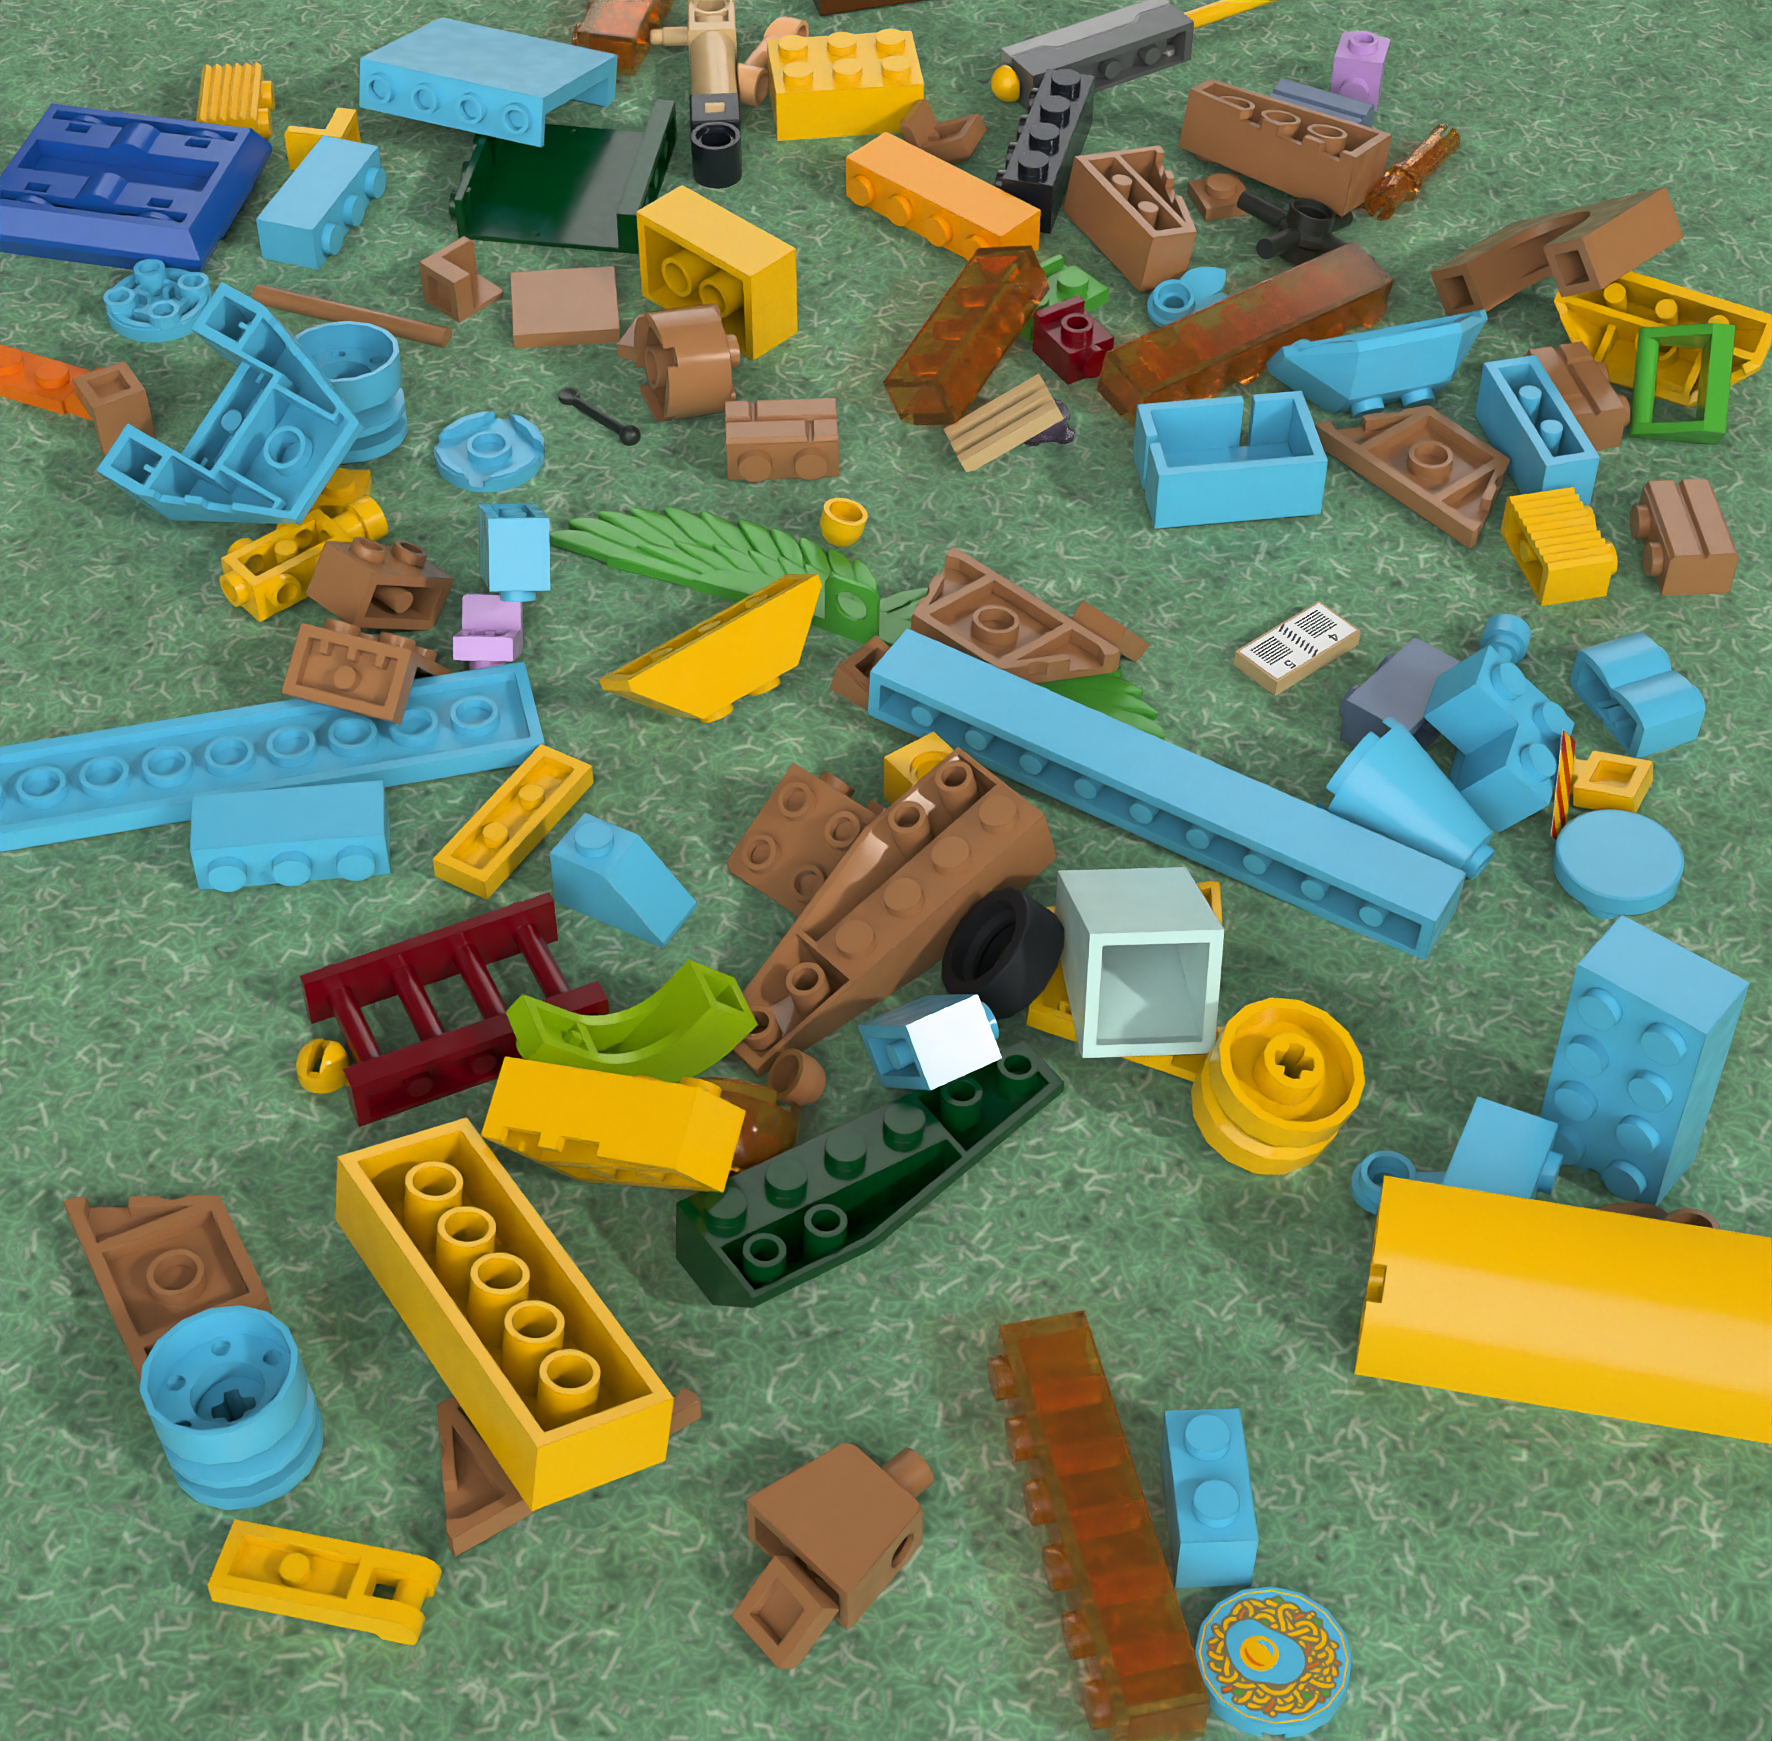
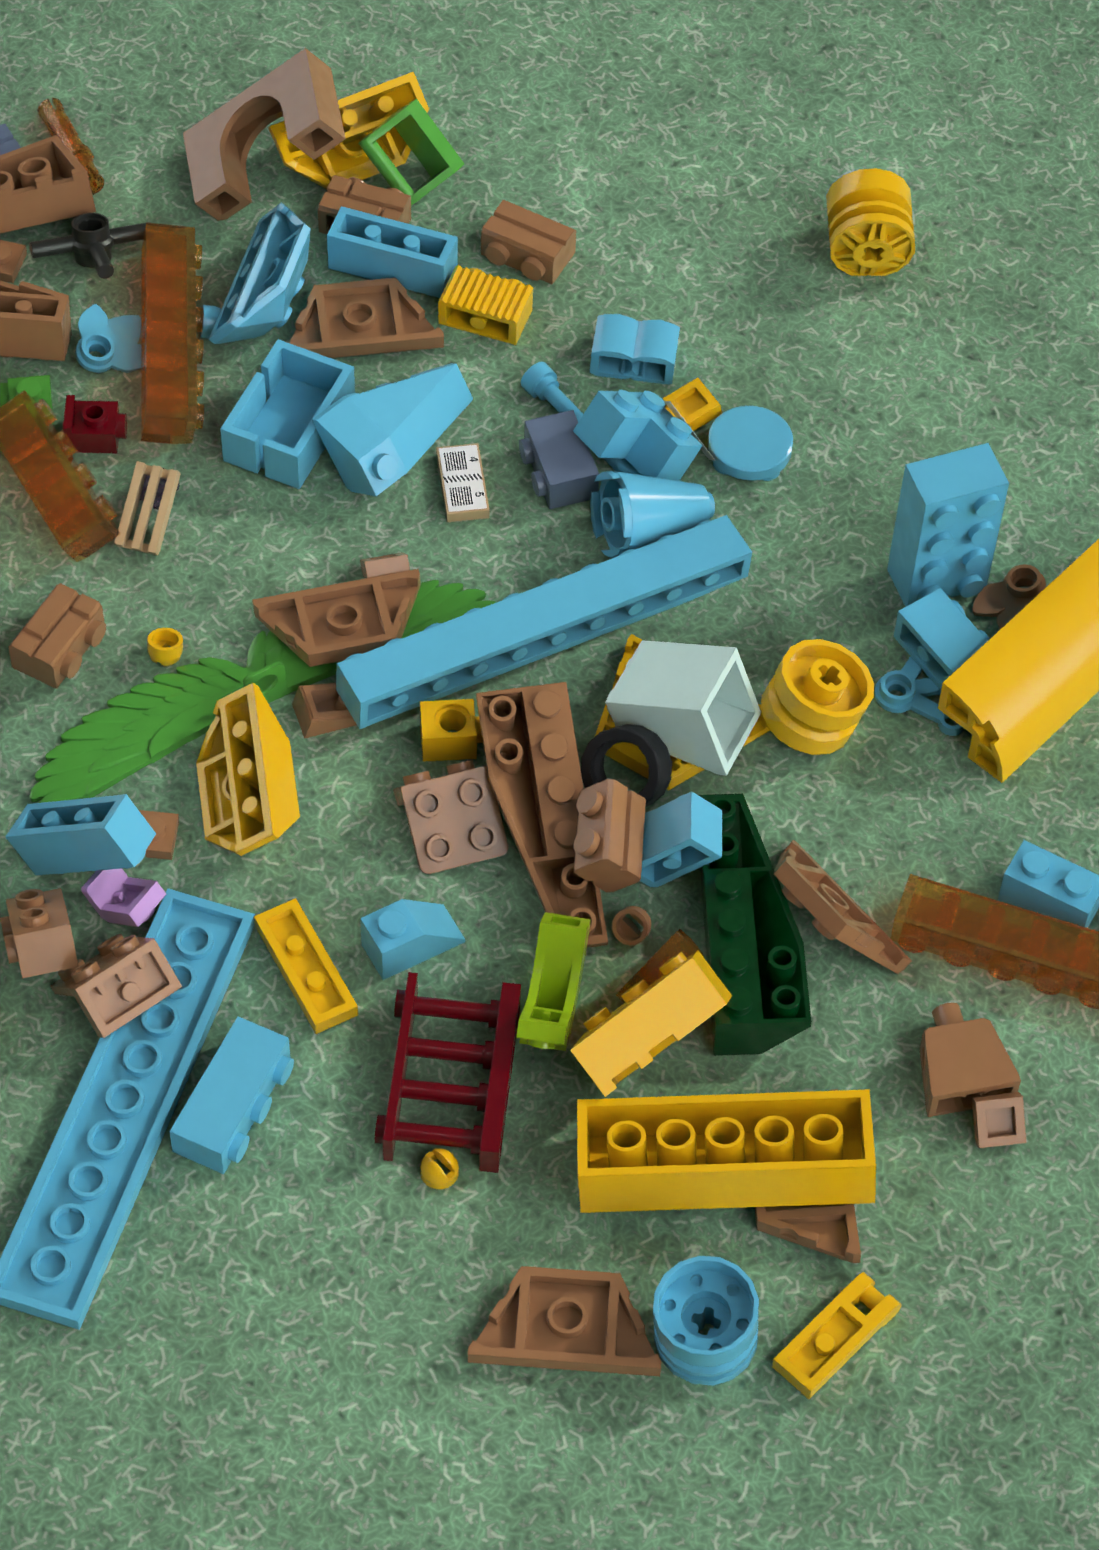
camera: 60 degrees left, 10 degrees up
(597, 628) = (166, 831): none -> medium nougat plate
(876, 971) = (609, 835): none -> medium nougat brick
(971, 1257) = (833, 909): none -> medium nougat wing
(1290, 537) = (388, 429): none -> medium azure wedge

